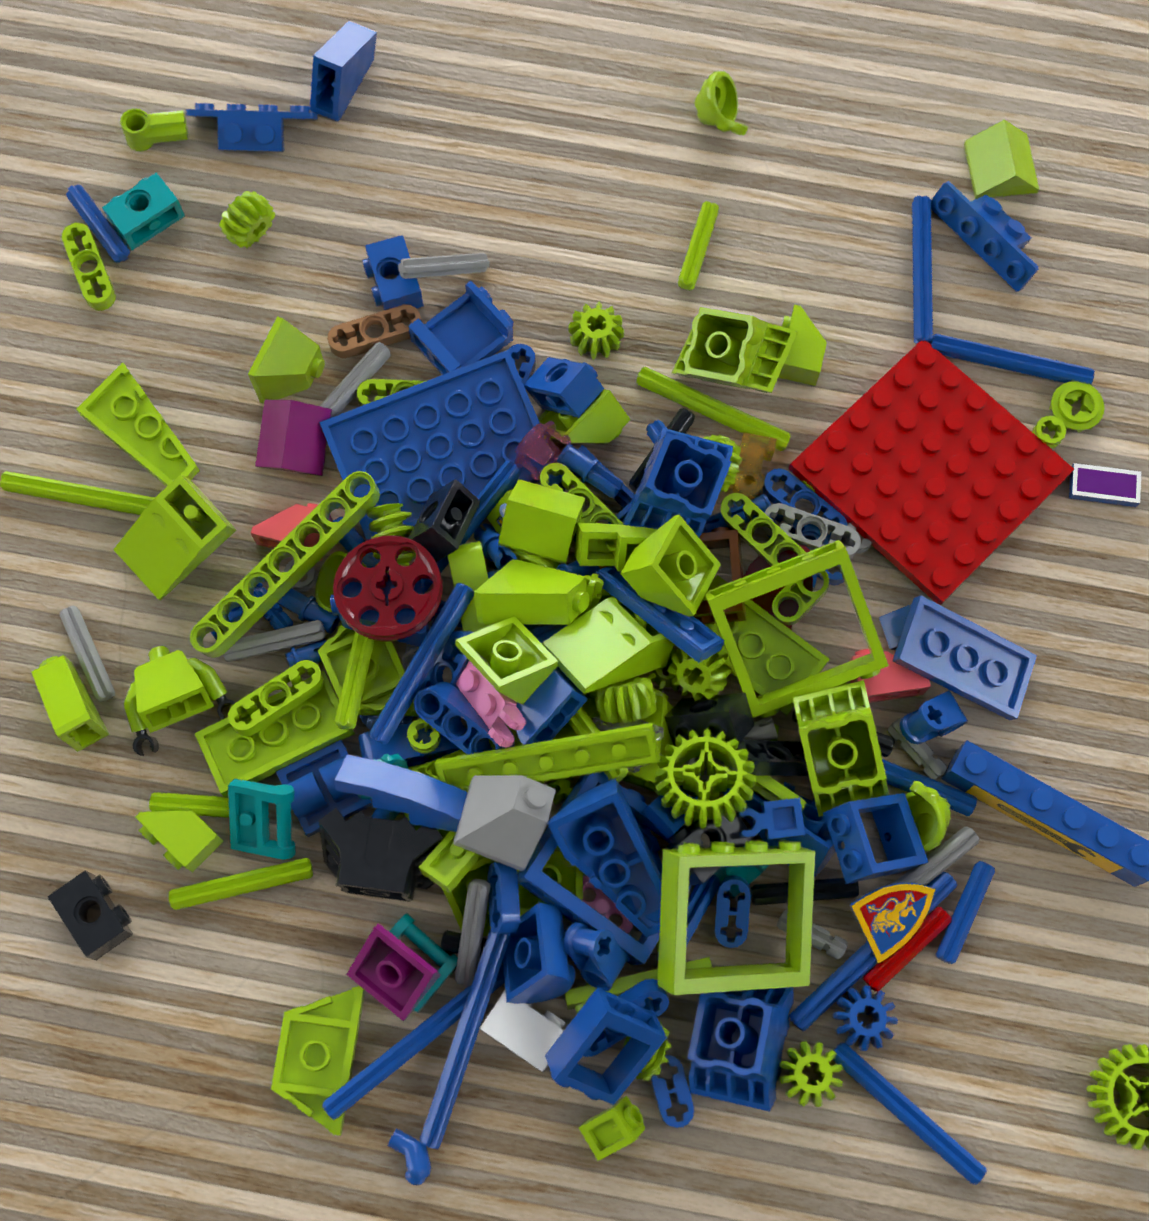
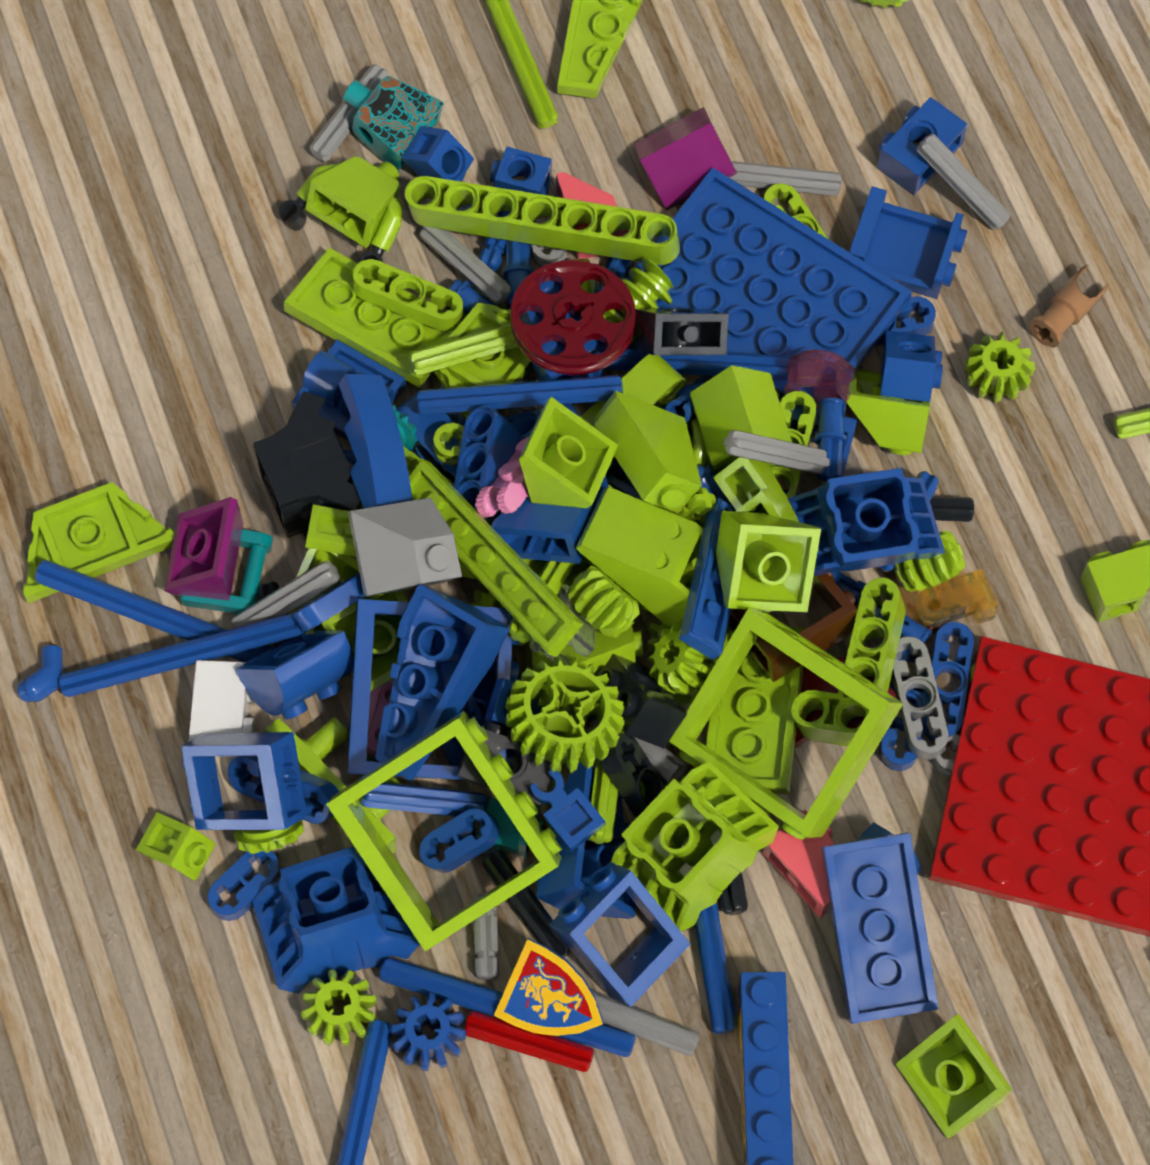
camera: 60 degrees right, 5 degrees down
(68, 703) = (288, 124): lime slope -> none
(72, 905) = (102, 244): black brick -> none
(118, 624) = (391, 116): none -> torso
(173, 536) = (511, 108): lime slope -> none
(176, 610) = (437, 154): none -> blue brick
(182, 834) = (225, 297): lime slope -> none
(200, 804) = (266, 299): lime axle -> none
(231, 546) = (526, 164): none -> blue brick
(240, 883) = (212, 376): lime axle -> none
(250, 818) = (274, 343): teal plate -> none
(285, 363) = (752, 100): lime slope -> none
(362, 324) = (849, 149): medium nougat beam -> none
(579, 262) = (1065, 309): none -> medium nougat piece
(591, 510) = (776, 452): none -> light grey axle
(595, 954) = (328, 718): blue piece -> none
(710, 407) = (995, 531): lime axle -> none
(734, 350) = (1066, 506): lime slope -> none
(919, 753) = (752, 936): light grey axle -> none
(929, 813) = (684, 982): lime hat -> none
(933, 719) = (793, 933): blue piece -> none
(965, 912) = (605, 1081): blue axle -> none
(1090, 673) = (954, 1077): none -> lime slope

